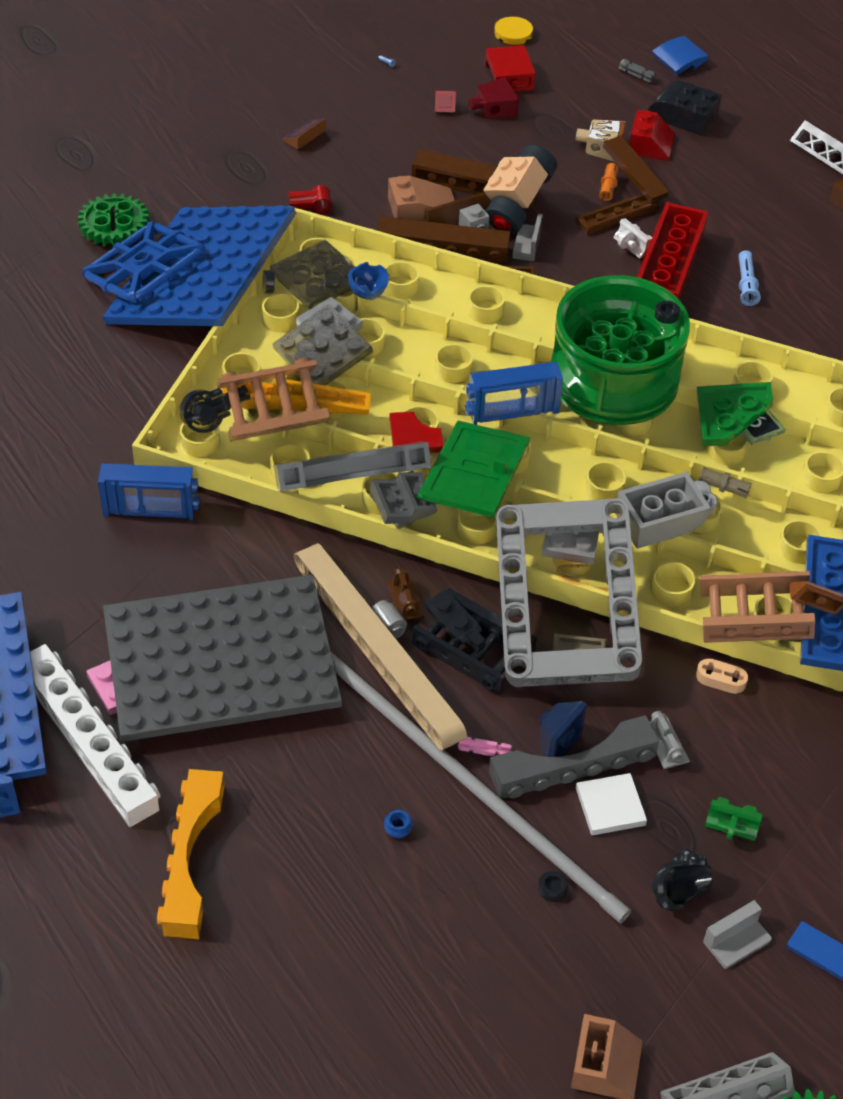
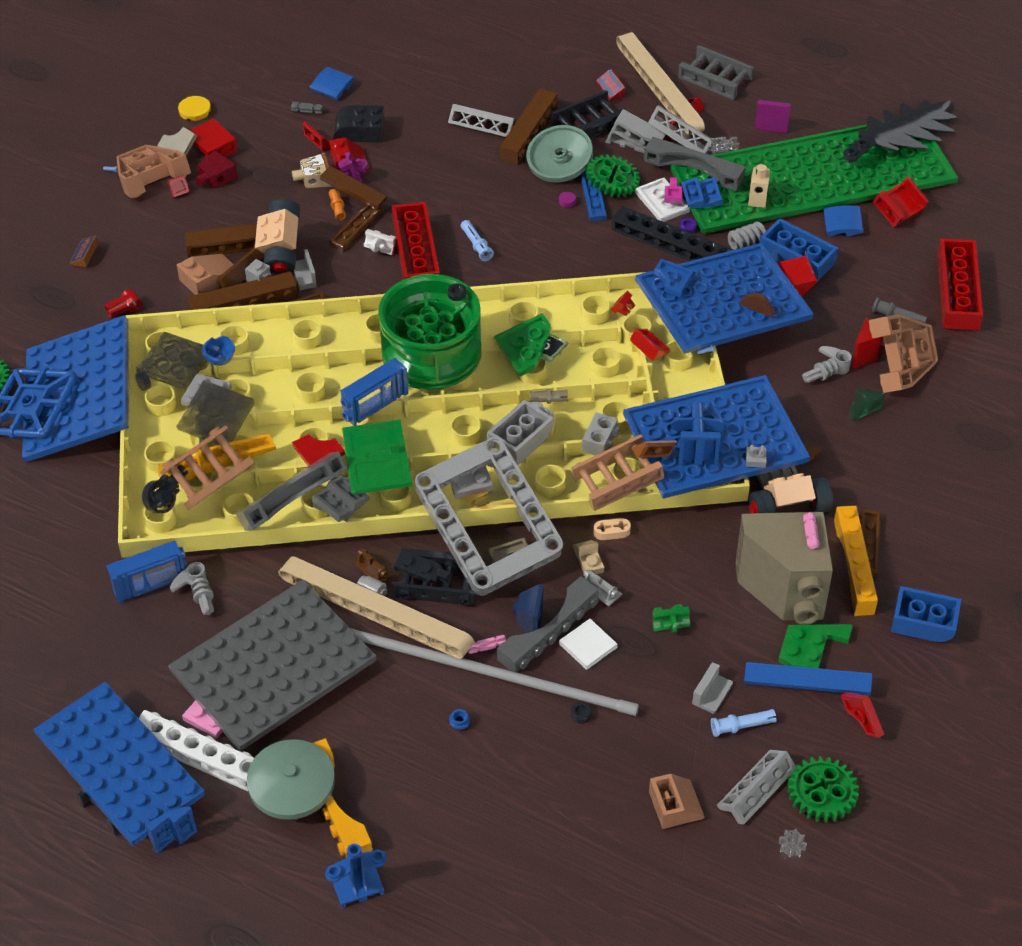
camera: 25 degrees left, 0 degrees up
(151, 802) = (290, 779): none -> sand green dish
(154, 957) = (356, 875): none -> blue piece
(201, 524) = (196, 577): none -> light grey piece
(425, 71) = (149, 165): none -> nougat wedge
(469, 59) = (180, 141): none -> tile
(627, 102) = (315, 137): none -> red slope
(652, 148) = (355, 167): none -> magenta hips
(673, 697) = (588, 556): none -> tan slope
(681, 880) = (660, 670): black hair -> none
(740, 994) = (733, 723): none -> light blue pin
(762, 551) = (600, 434): none -> light grey brick

